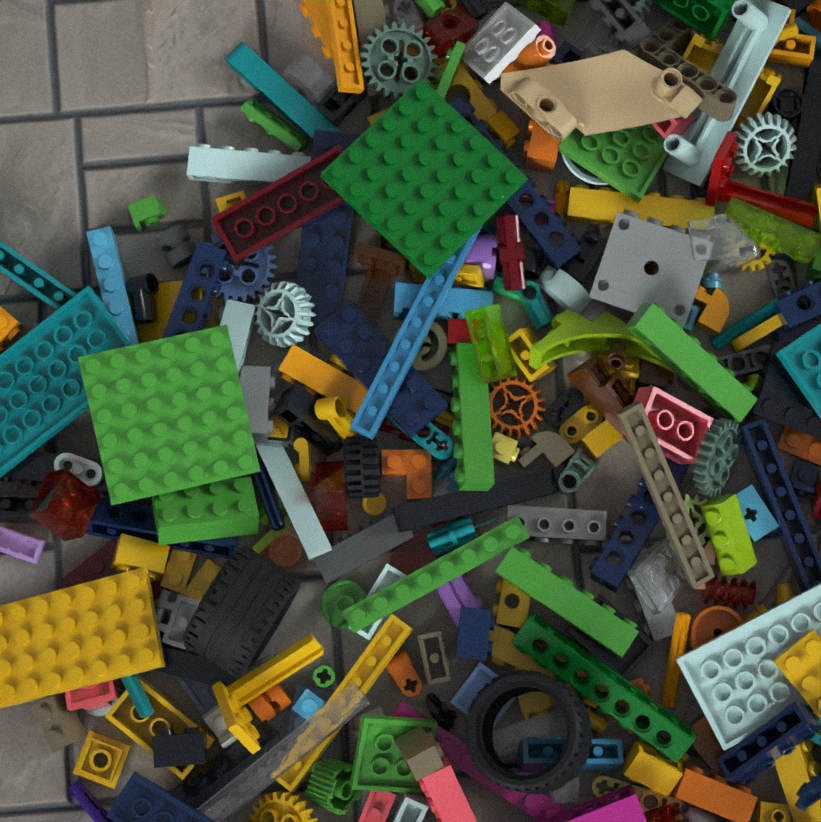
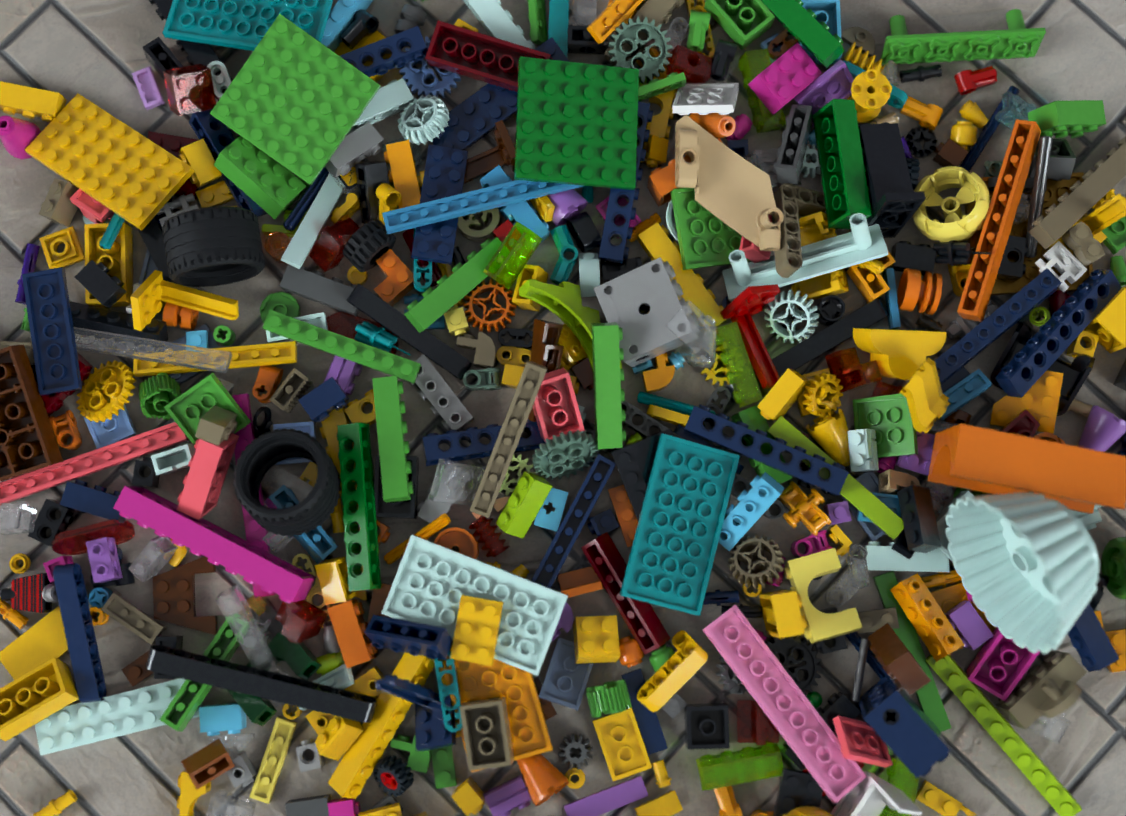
camera: 50 degrees right, 0 degrees up
(511, 253) = (581, 219): dark red piece -> none
(616, 358) = (569, 339): reddish brown pin -> none

